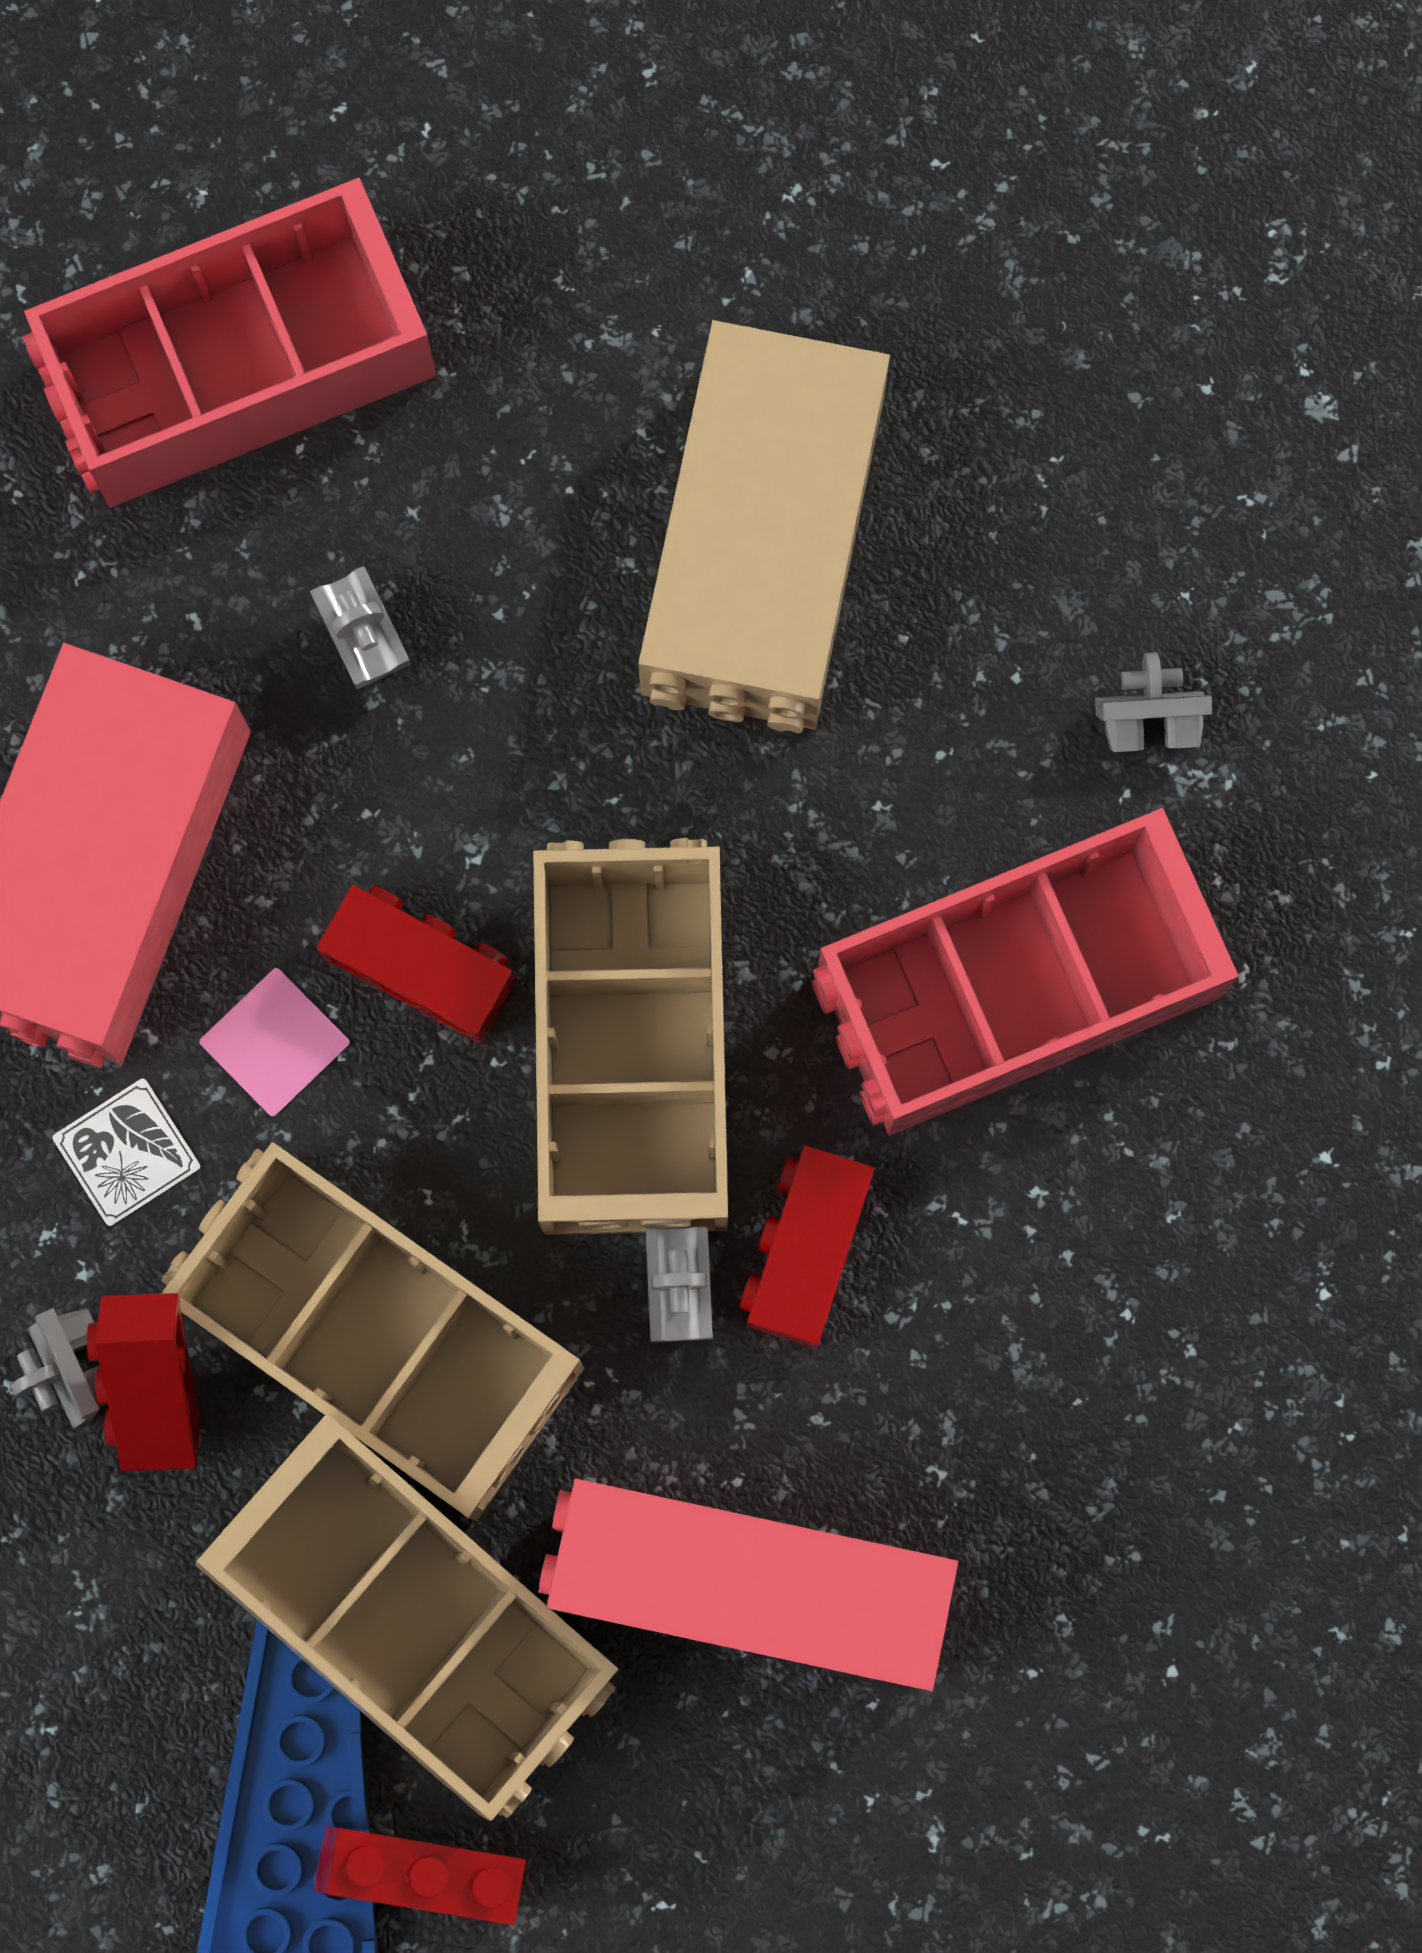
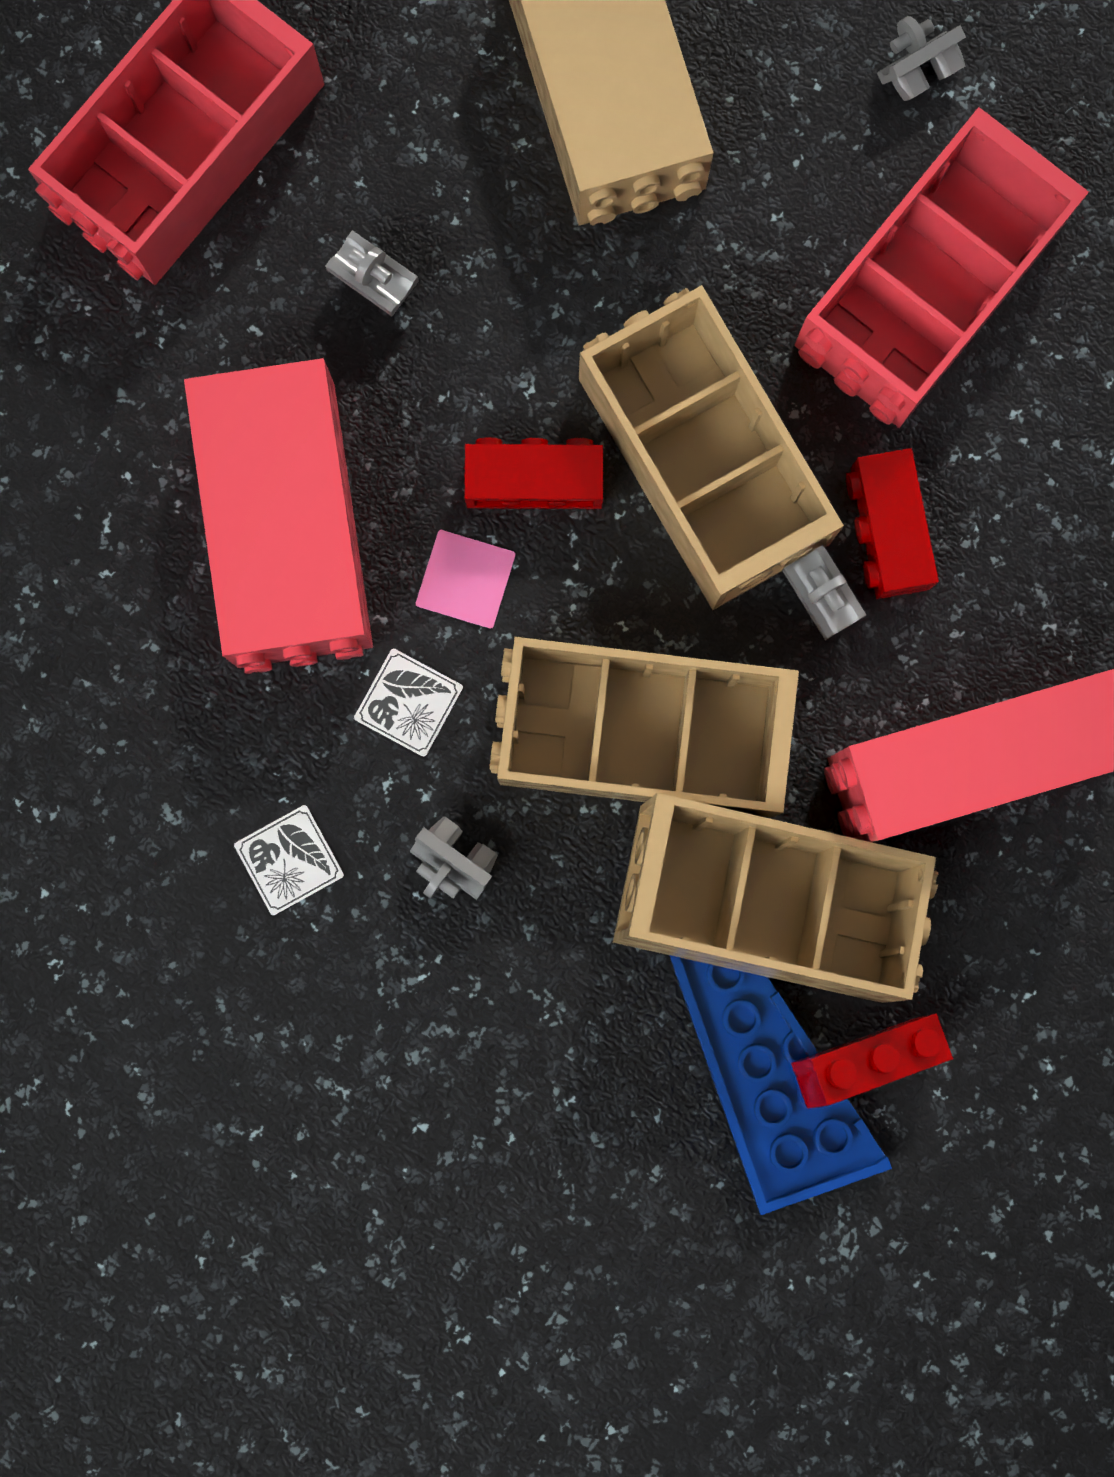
camera: 30 degrees left, 5 degrees up
(145, 1381) = (515, 840): red brick -> none

